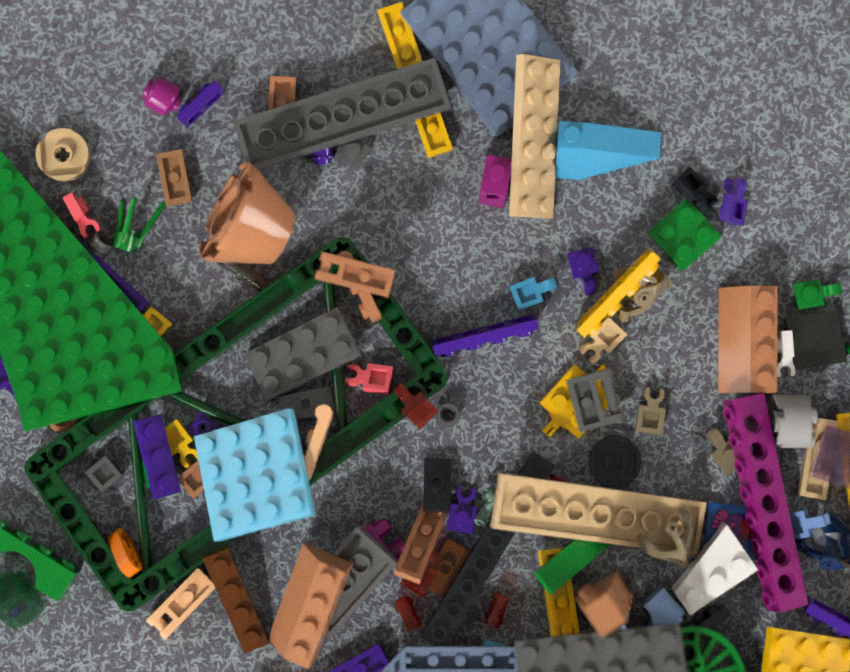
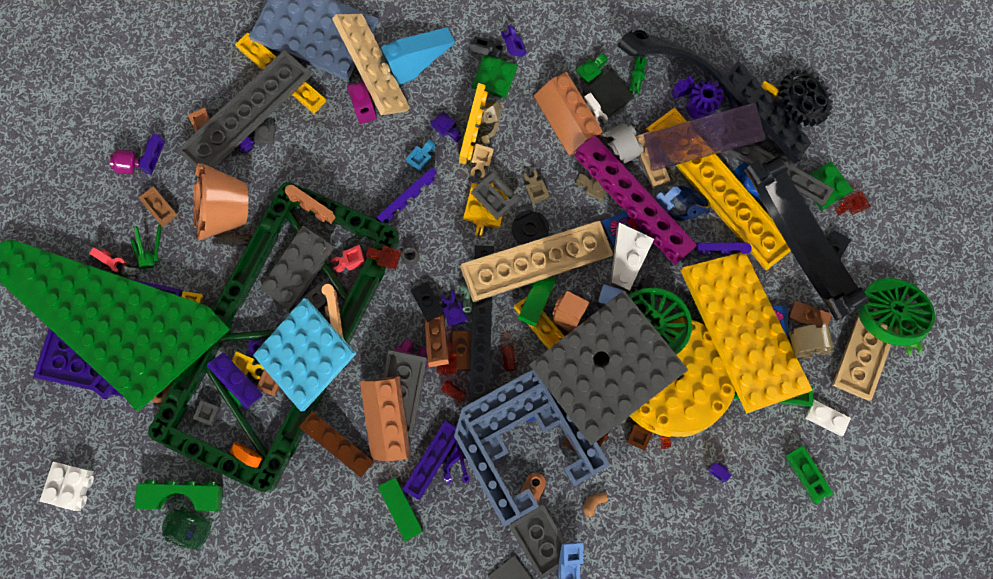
camera: 30 degrees left, 10 degrees down
(52, 144) = (85, 237): tan plate -> none
(182, 602) = (302, 467): light nougat plate -> none
(356, 274) = (301, 193): nougat plate -> none
(681, 553) = (598, 259): dark tan helmet -> none

